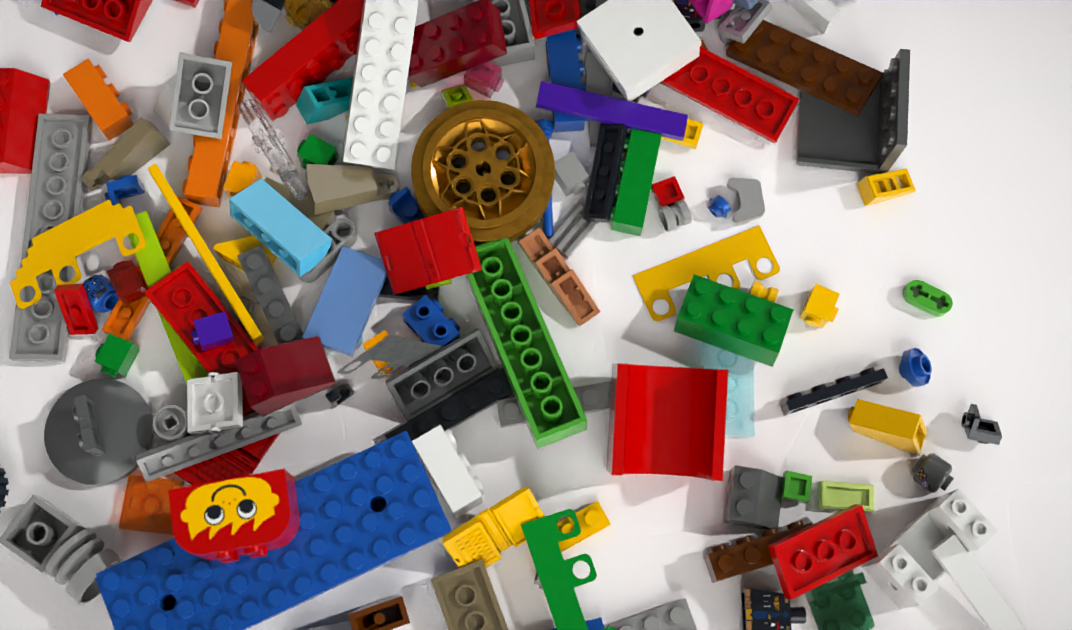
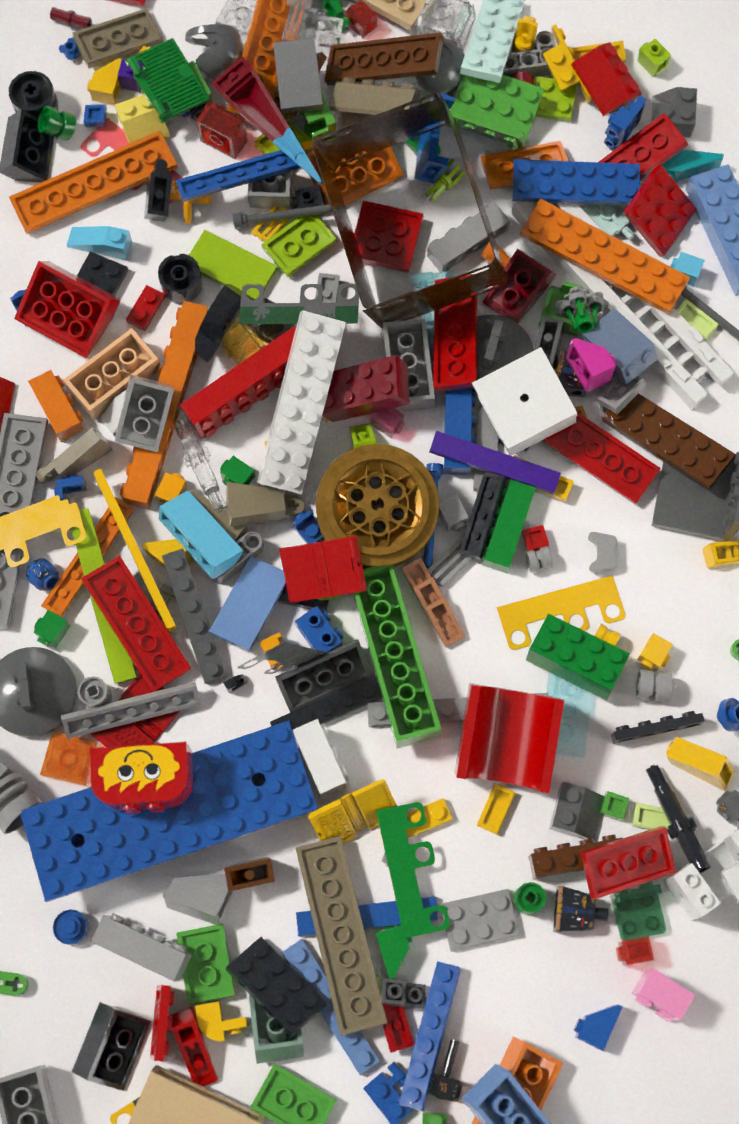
camera: 10 degrees right, 0 degrees up
(76, 309) = (22, 586): red plate -> none
(127, 281) = (67, 567): clear red brick -> none
(154, 55) = (109, 371): none -> light nougat brick
(212, 331) = (134, 618): dark purple brick -> none
(214, 403) = (131, 679): white plate -> none
(284, 374) = (192, 661): dark red slope -> none
(324, 100) = (249, 426): teal slope -> none
(659, 506) = (496, 809): none -> yellow tile
(712, 607) = (529, 898): none -> green wheel
(719, 206) = (578, 555): blue plate -> none
(825, 343) = (654, 685): none -> light grey wheel
(876, 501) = (680, 826): none -> black piece

